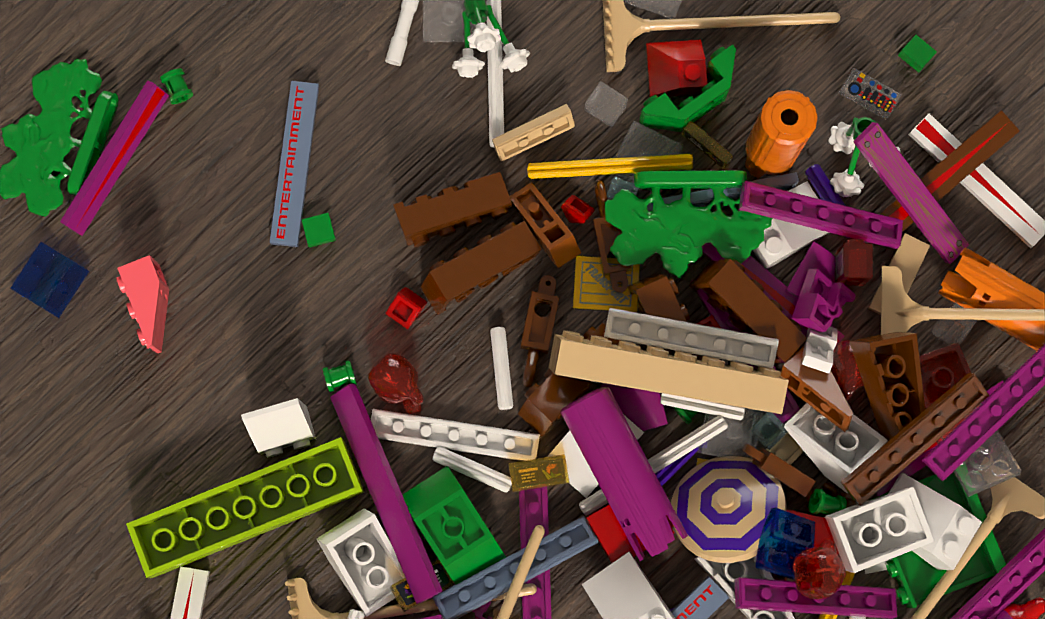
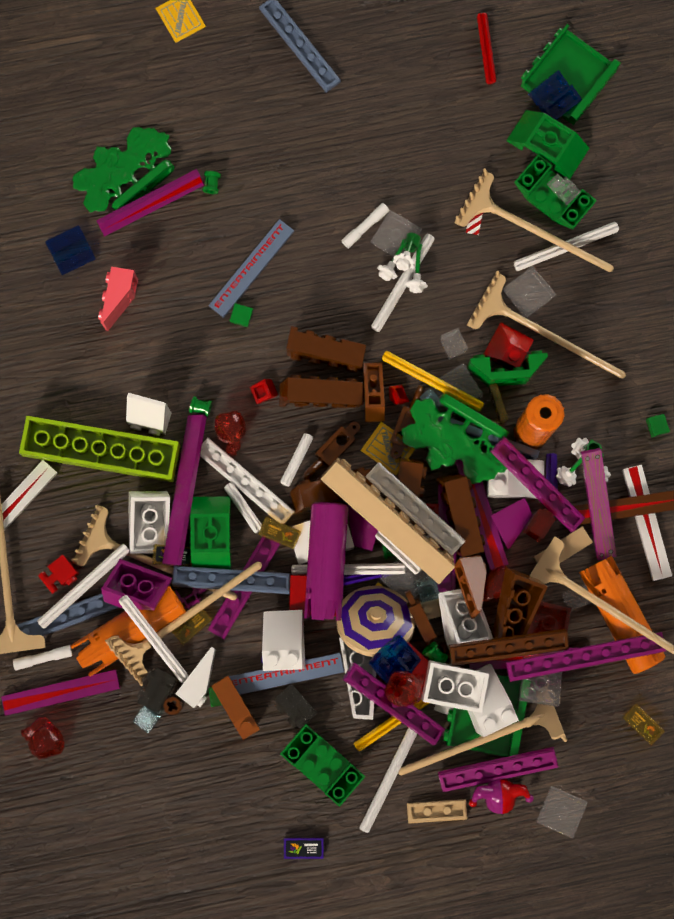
camera: 30 degrees right, 0 degrees up
(533, 132) = (400, 334): tan tile -> none
(819, 349) = (488, 560): white slope -> none
(820, 301) = (506, 534): magenta slope -> none
(870, 93) = (614, 432): tile -> none

